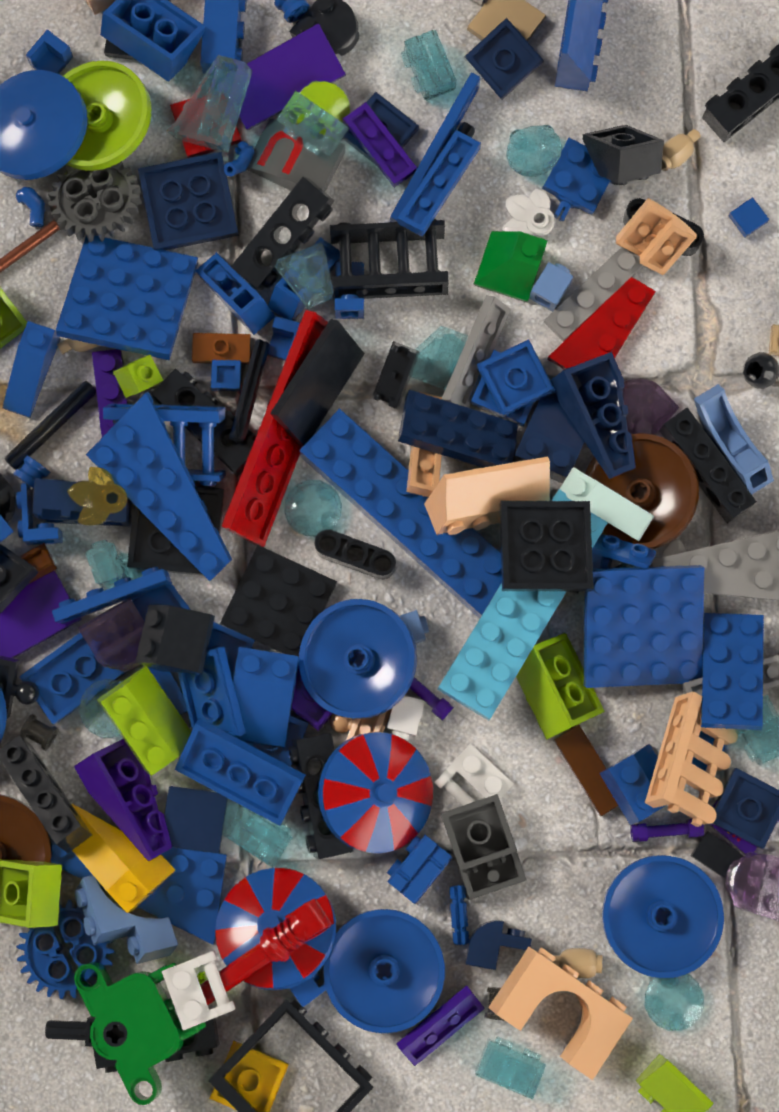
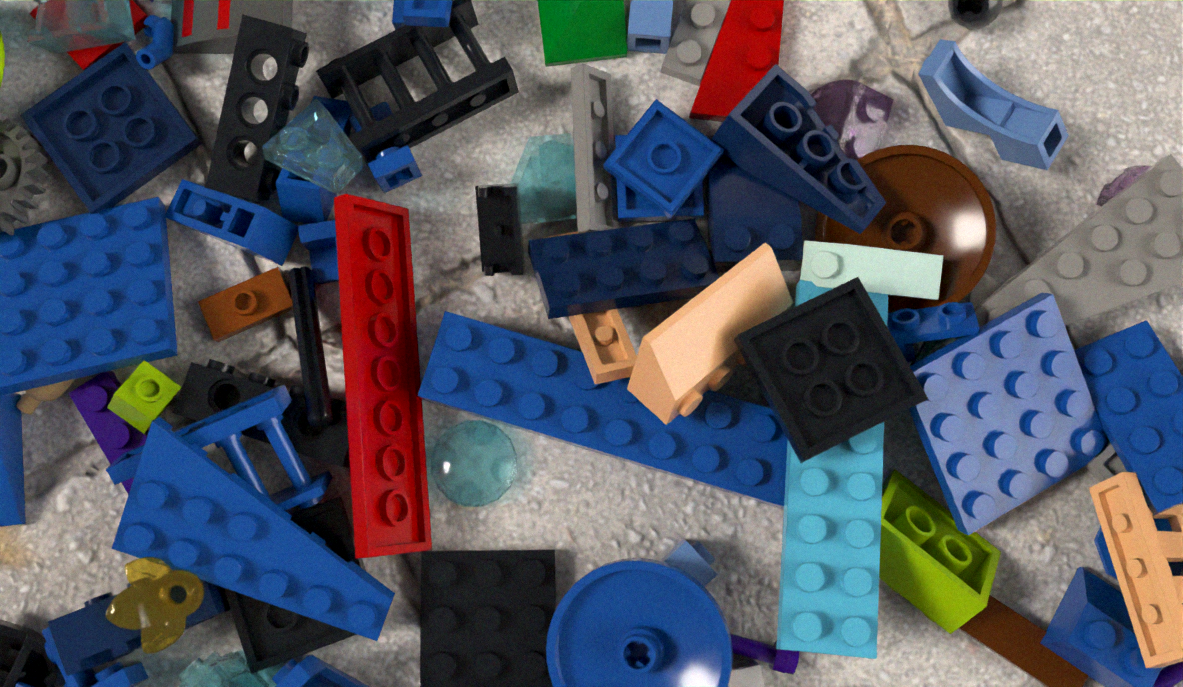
camera: 25 degrees left, 0 degrees up
(30, 470) = (54, 601): blue wheel -> none
(50, 424) = (55, 523): black axle -> none
(226, 375) = (269, 338): blue plate -> none
(317, 382) = (397, 290): black tile -> none
(344, 544) = (540, 507): black beam -> none
(712, 469) = (1010, 174): black brick -> none

